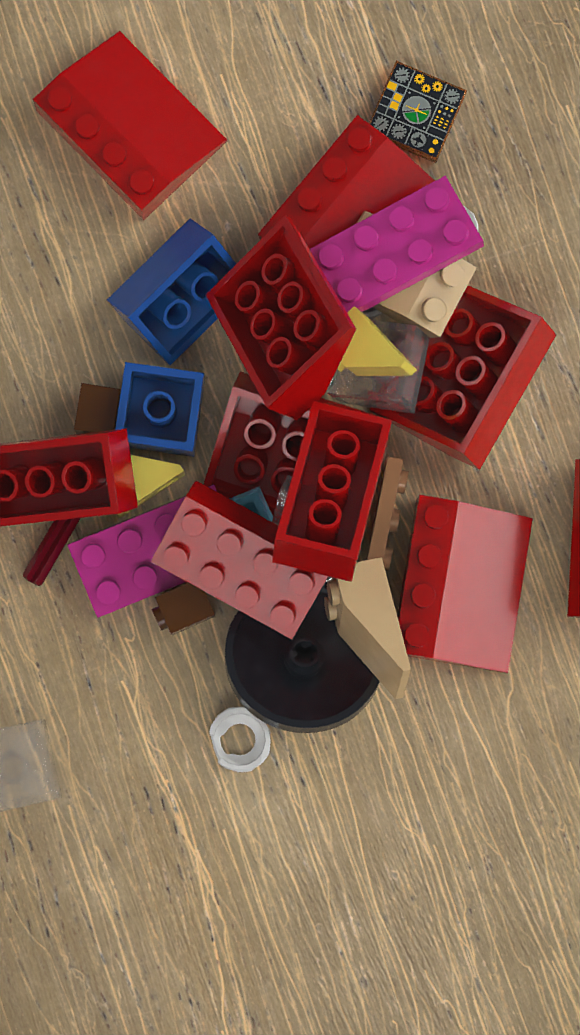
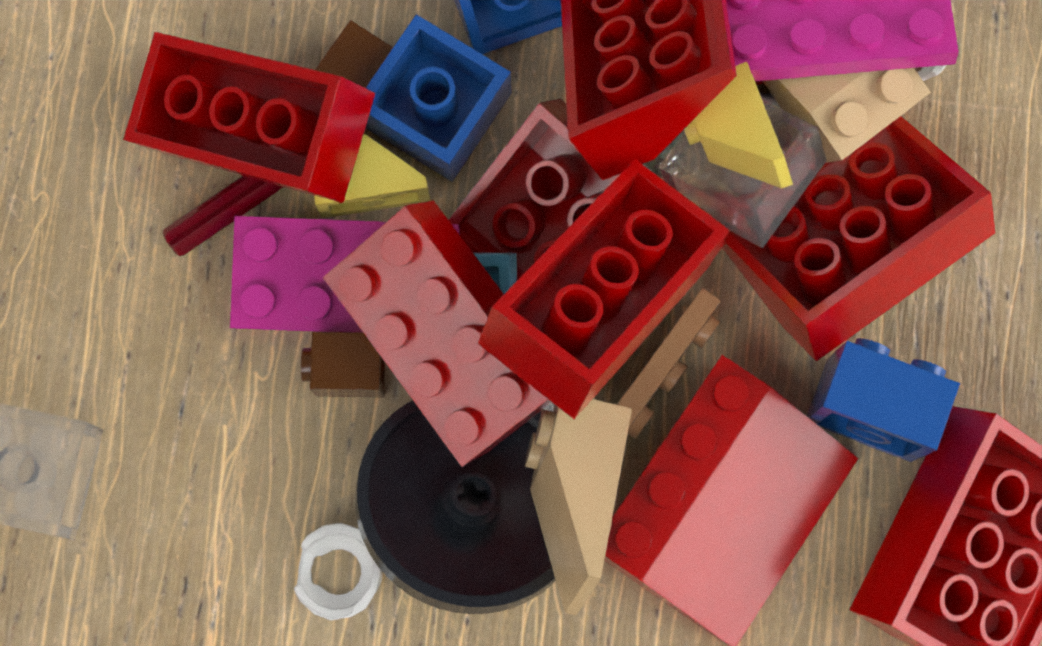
camera: 35 degrees right, 5 degrees down
(531, 477) = (883, 400): none -> blue brick

